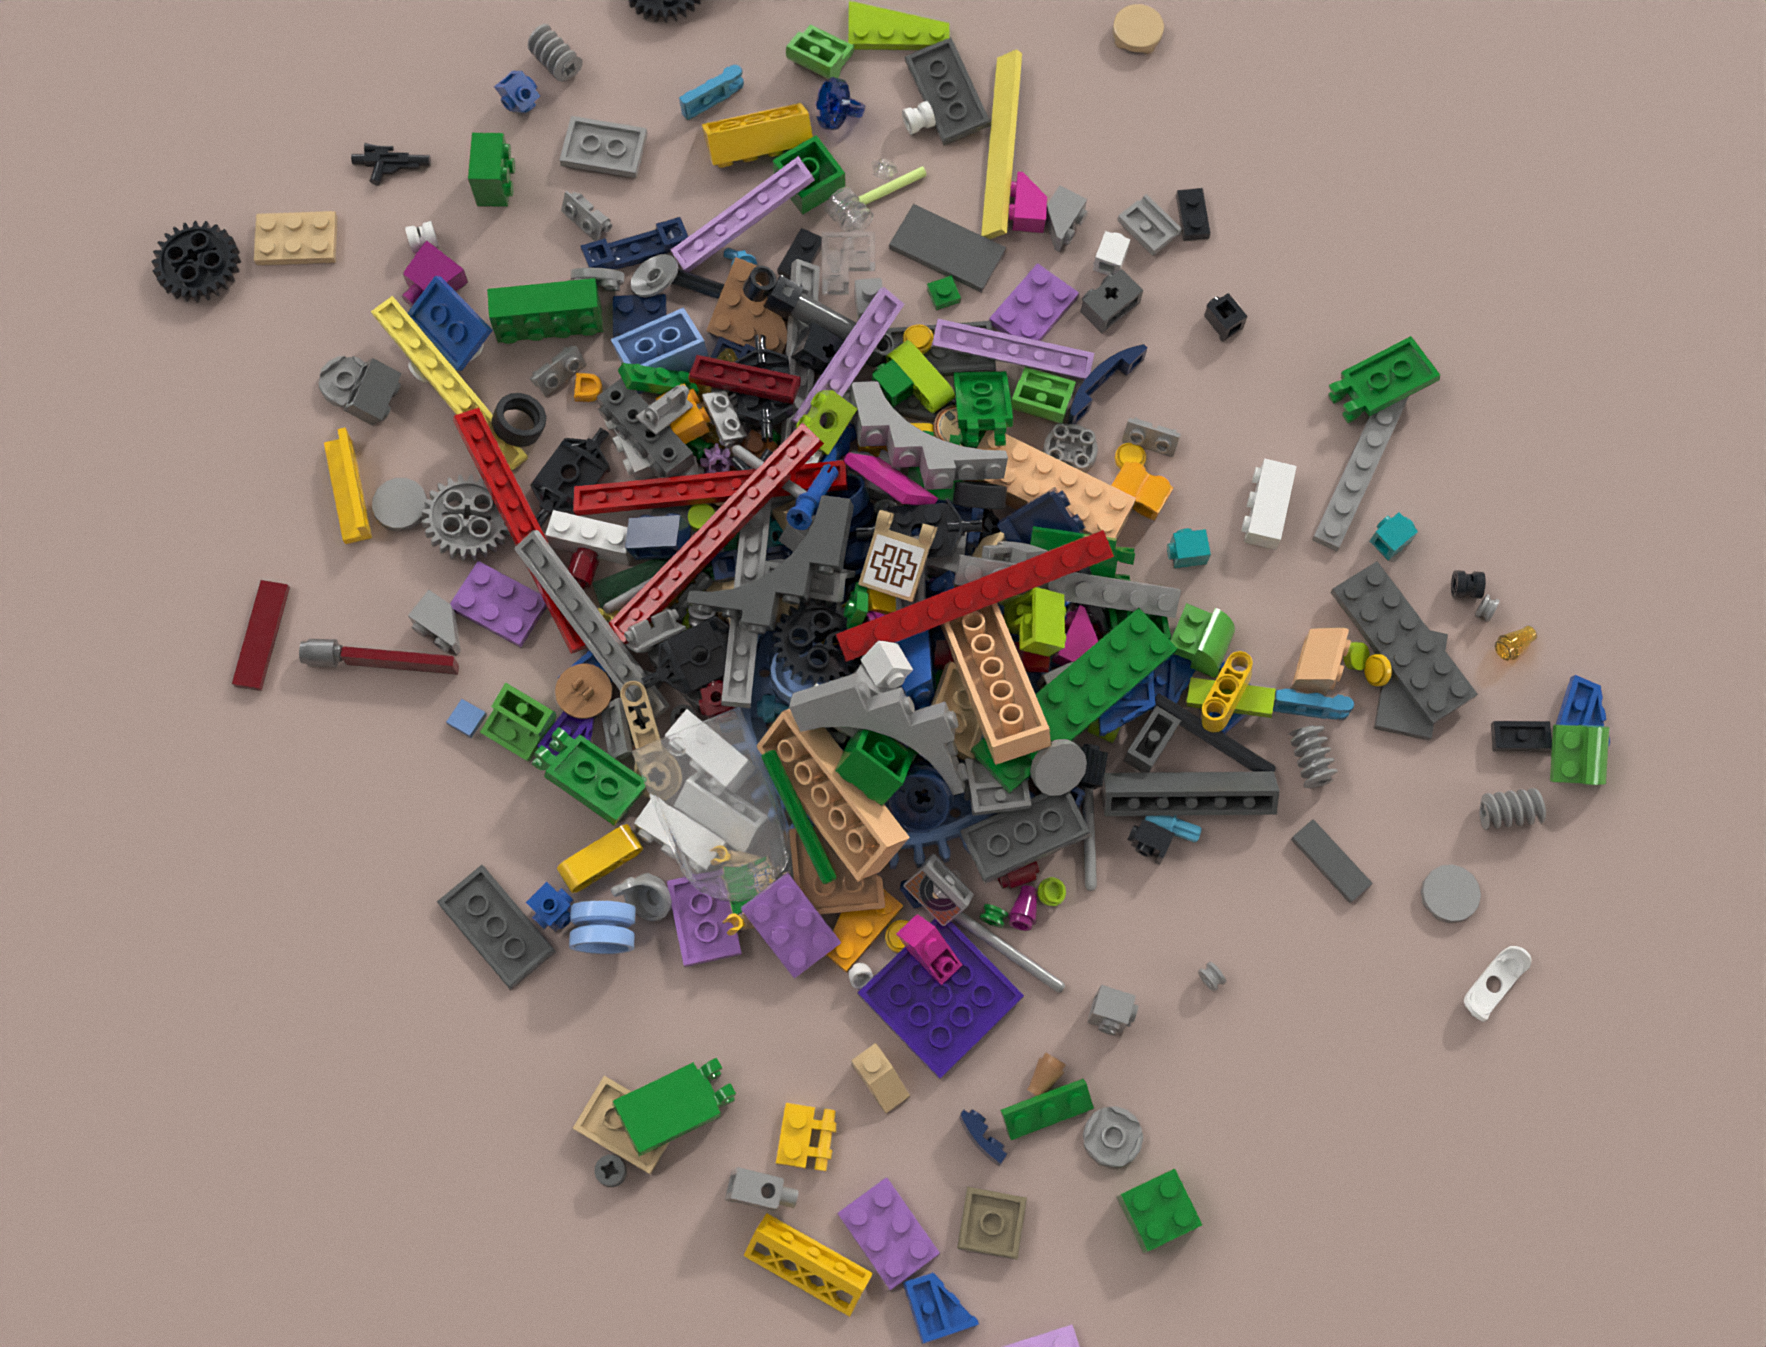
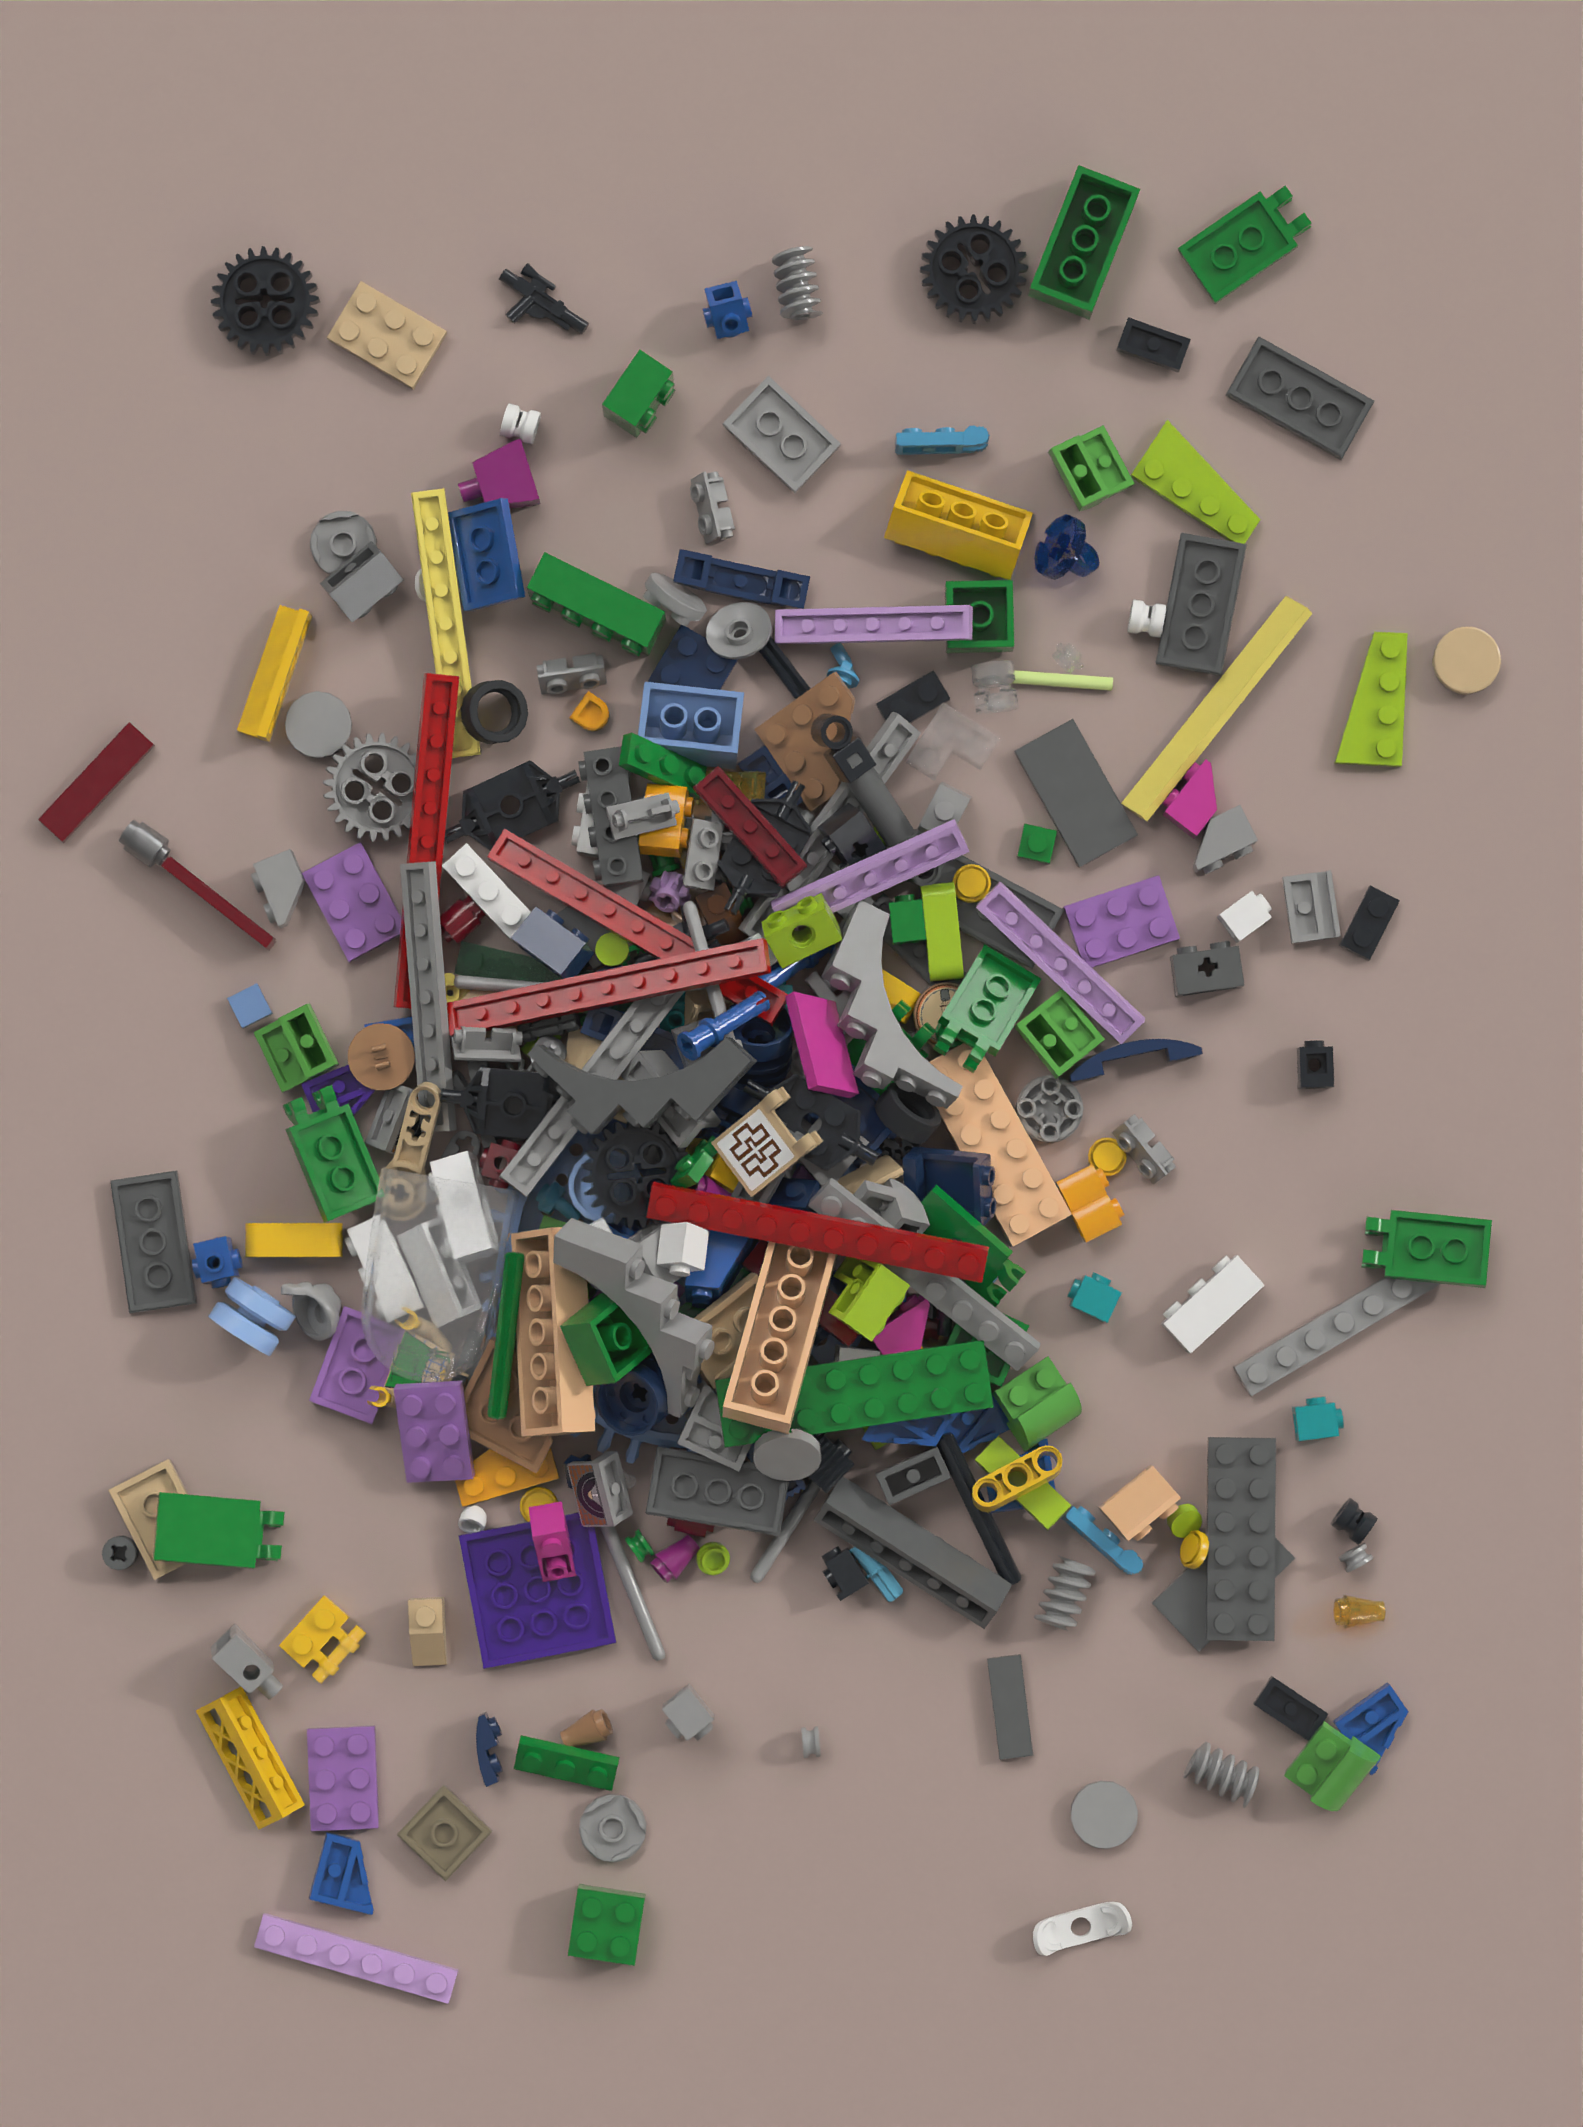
camera: 30 degrees right, 15 degrees up
(1107, 94) = (1377, 711): none -> lime wing

